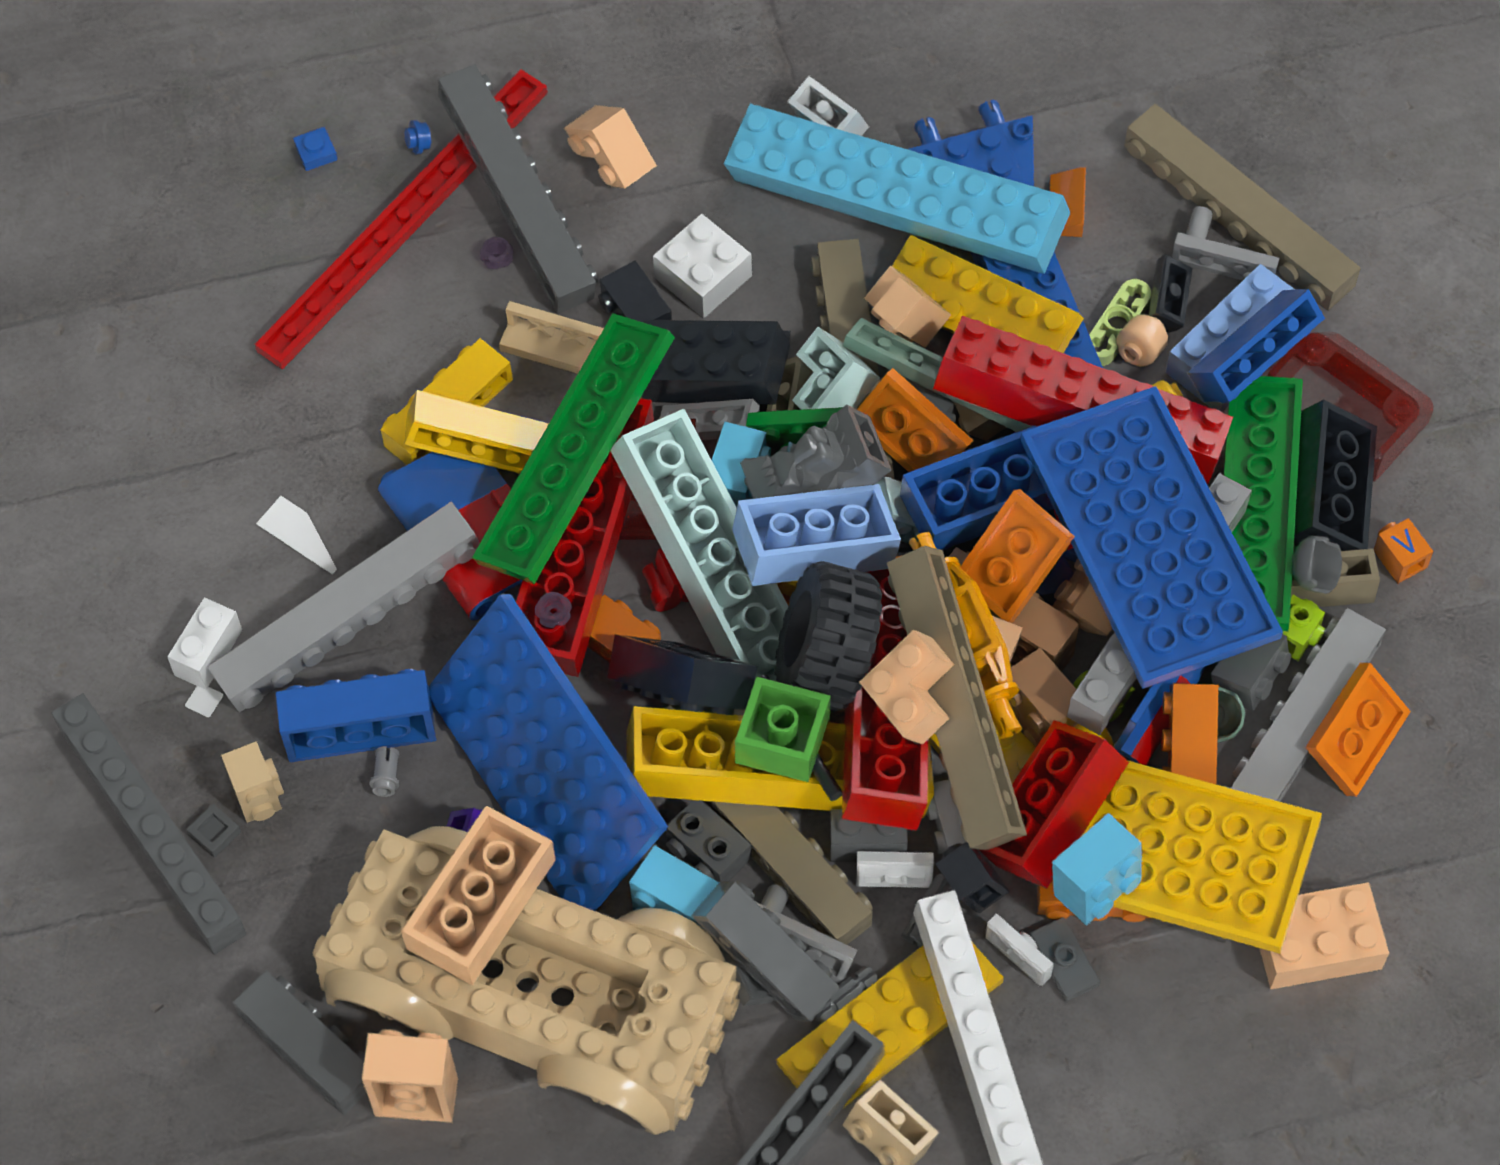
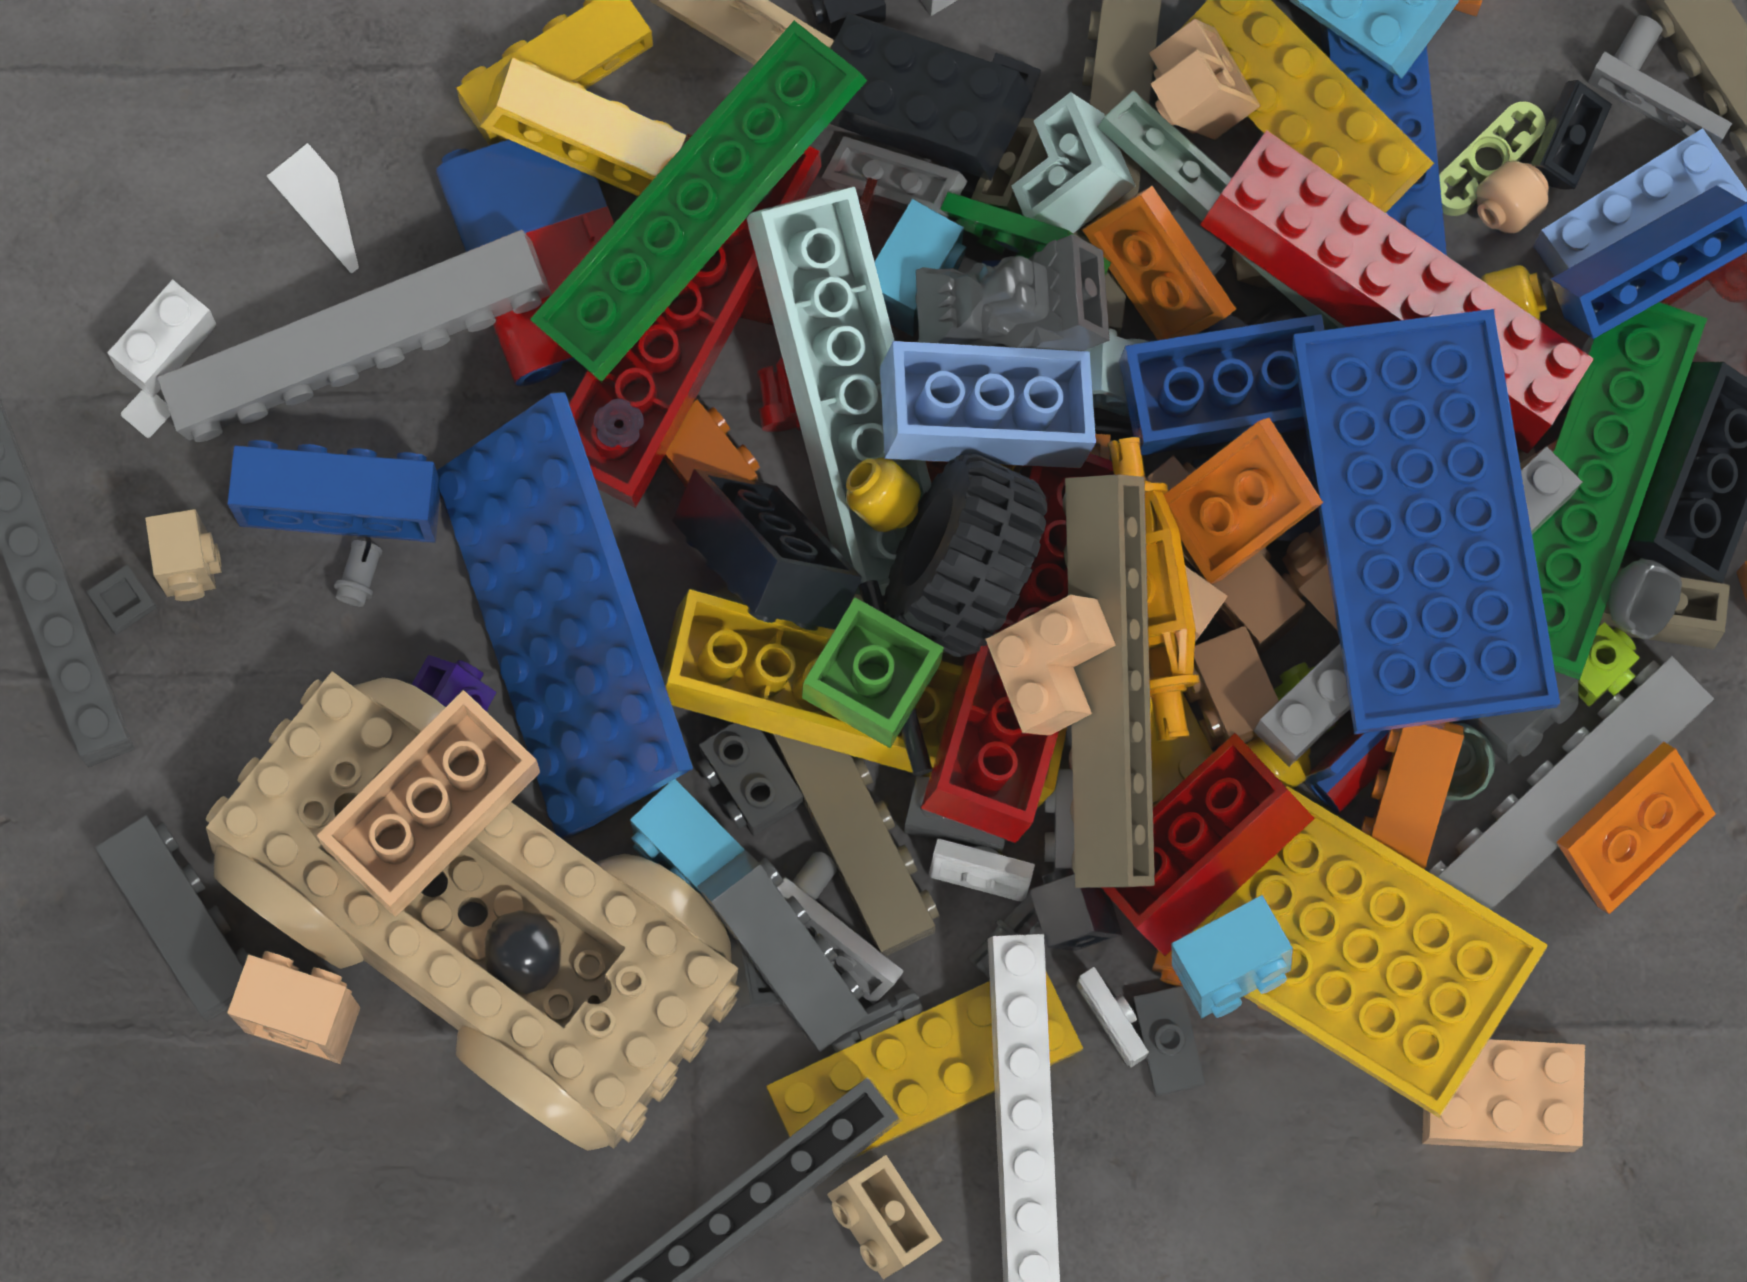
camera: 10 degrees right, 15 degrees up
(573, 993) = (523, 951): none -> black hair
(756, 614) = (882, 494): none -> yellow head

